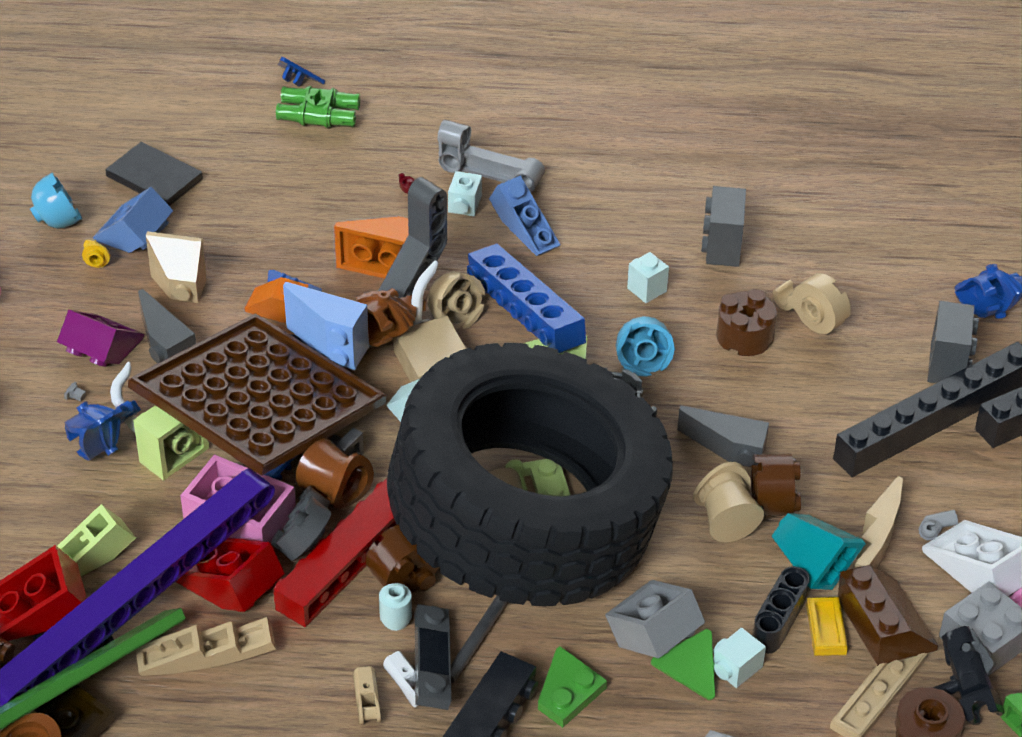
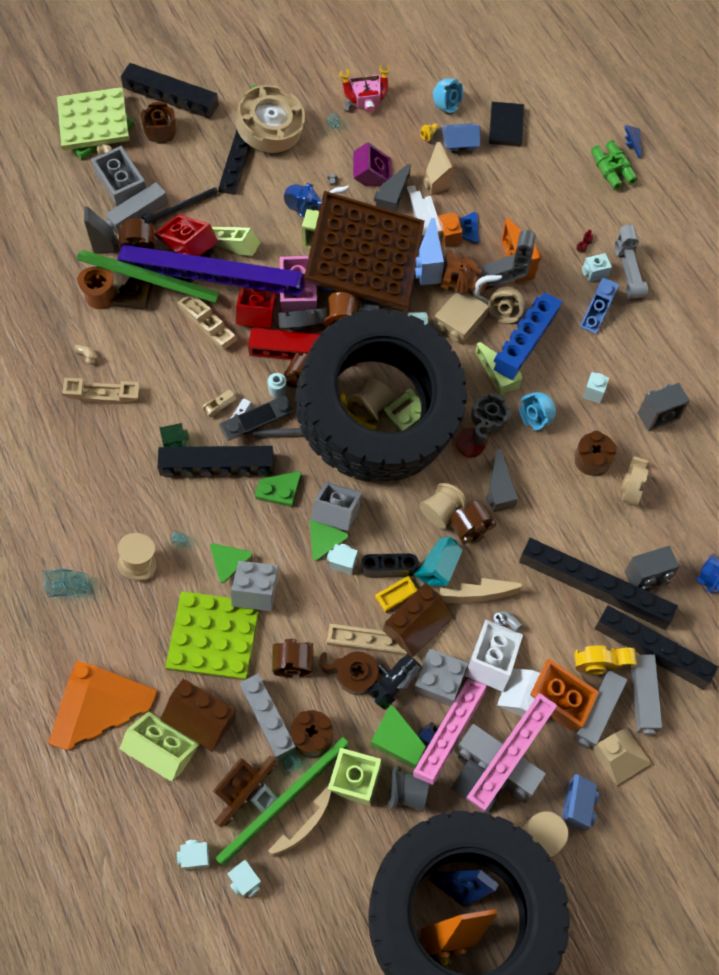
camera: 60 degrees right, 20 degrees up
(220, 315) = (423, 209): none -> white piece

